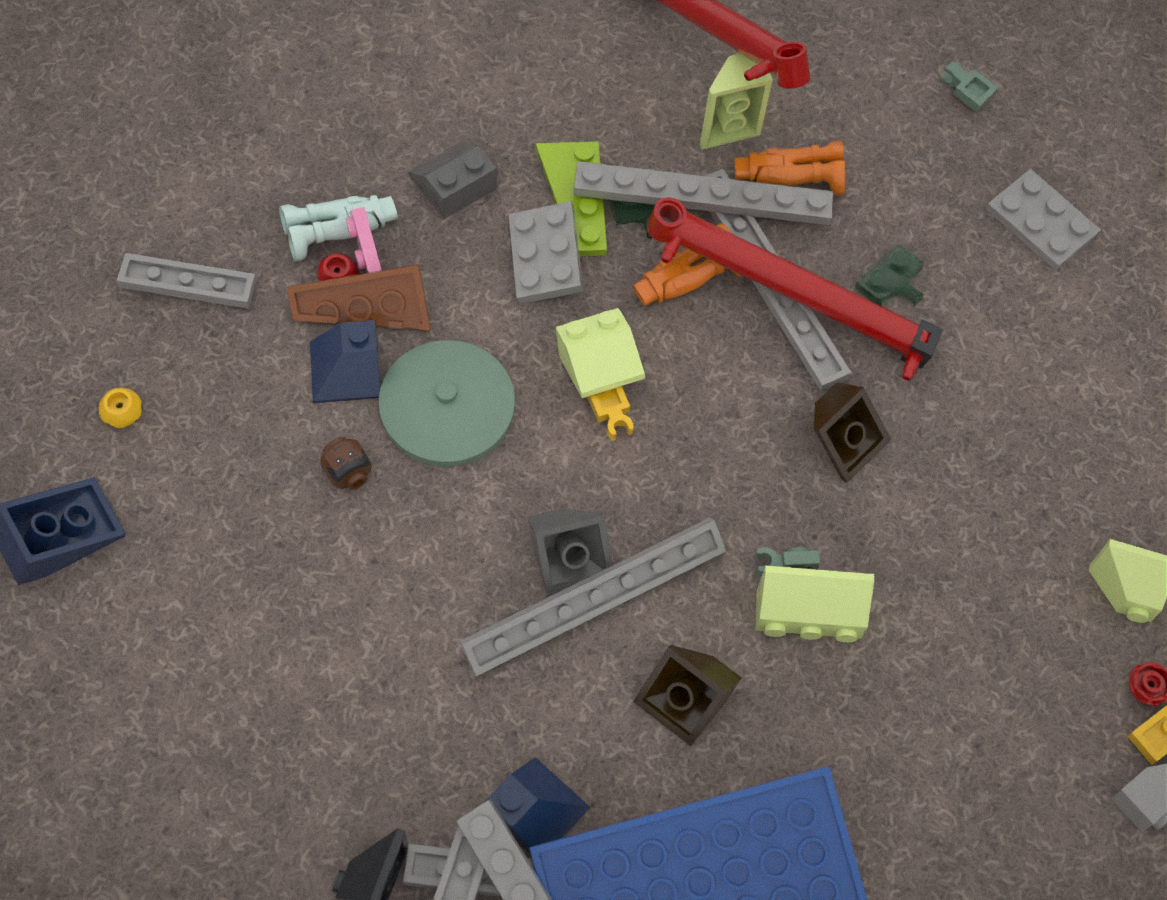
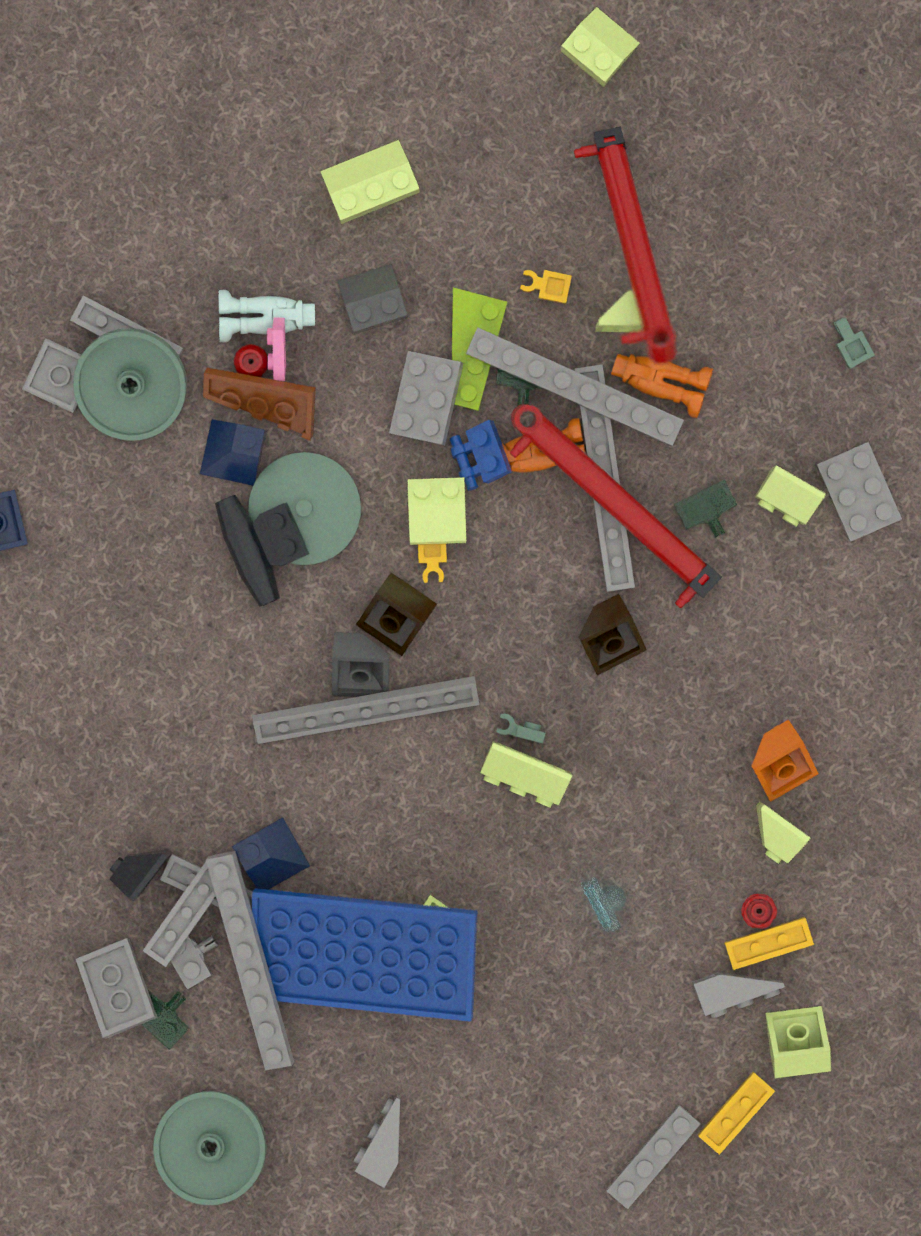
camera: 25 degrees right, 25 degrees up
(119, 345) = (53, 375): none -> light grey tile
(122, 416) = (56, 436): yellow plate -> none
(195, 292) = (124, 408): none -> sand green dish
(345, 463) = (208, 540): reddish brown head -> none
(403, 452) = (260, 544): none -> black plate
(416, 74) = (370, 181): none -> yellowish green slope
(592, 477) = (396, 614): none -> dark brown slope
(633, 280) = (488, 453): none -> blue plate
(639, 115) = (552, 286): none -> yellow plate
(686, 691) = (409, 807): dark brown slope -> none
(967, 732) = (605, 902): none -> clear light blue tile
(977, 230) = (789, 495): none -> yellowish green slope
(1100, 501) = (782, 761): none -> orange slope

